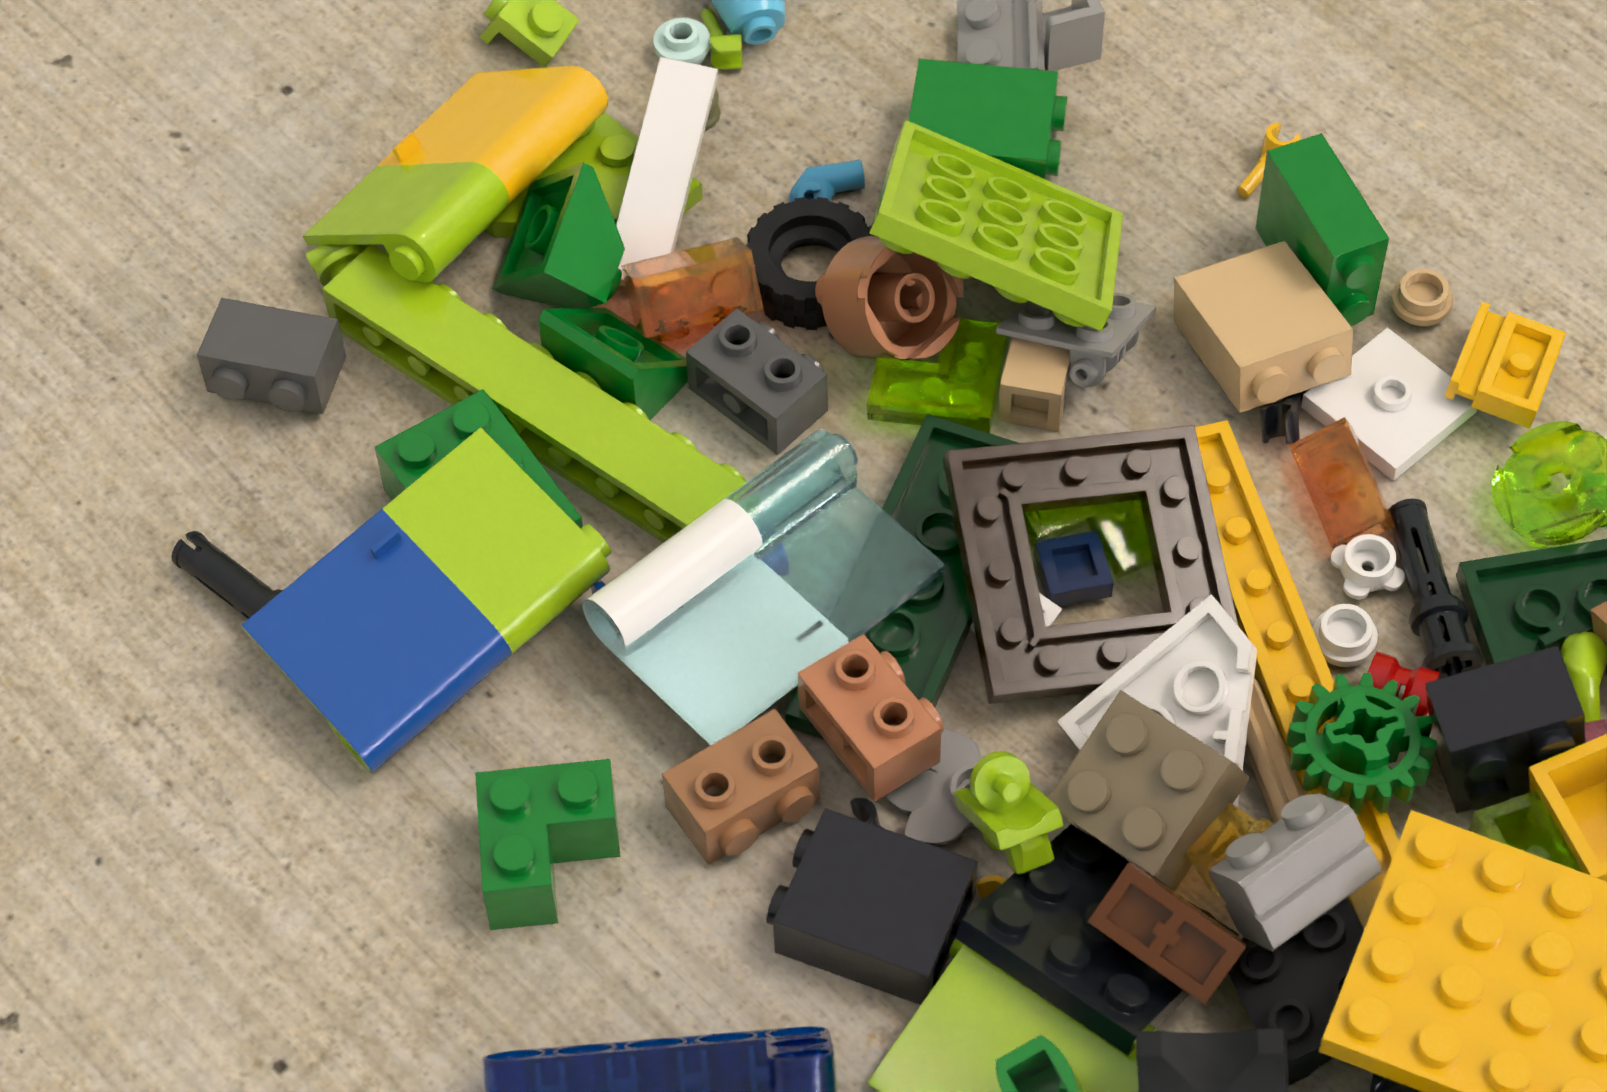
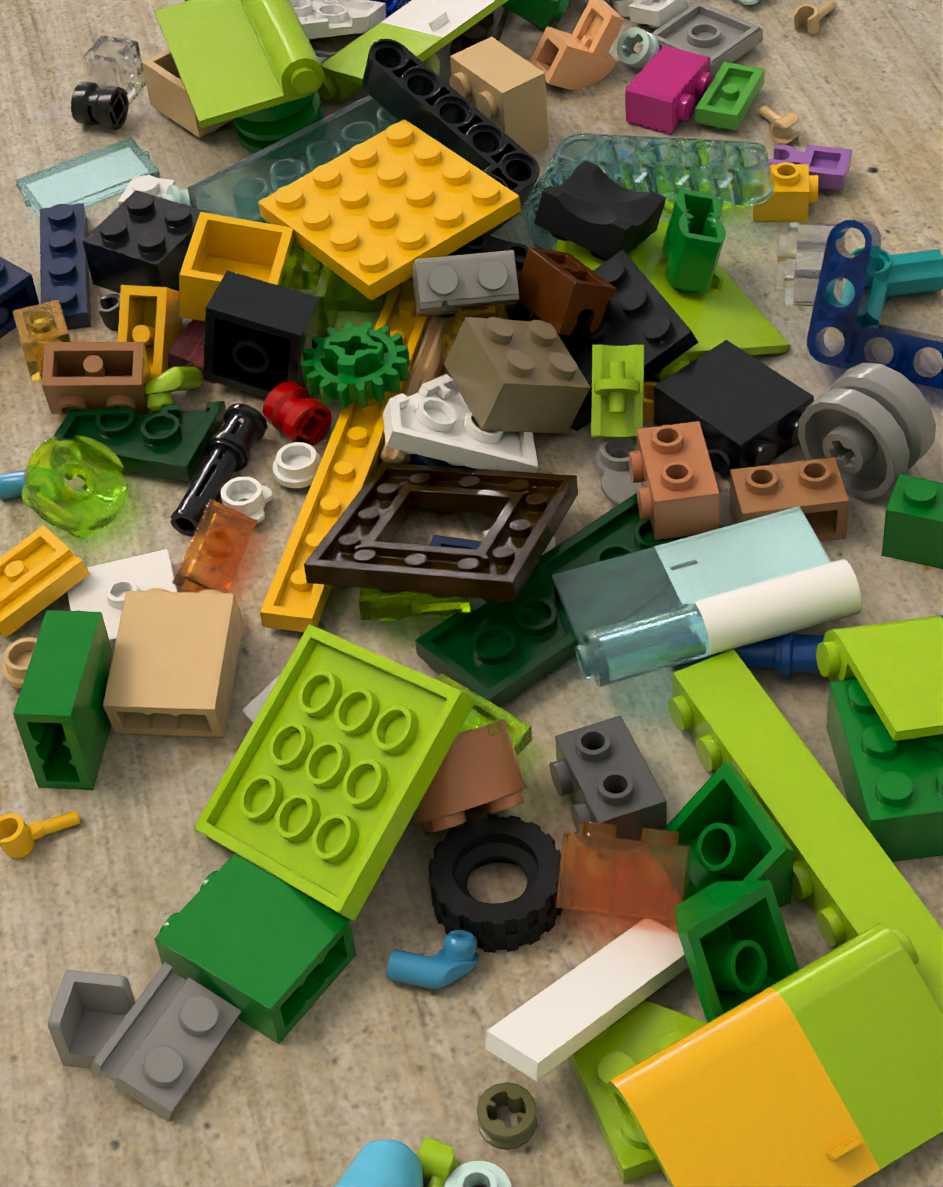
camera: 150 degrees left, 10 degrees down
(682, 880) = (871, 425): none -> light grey wheel

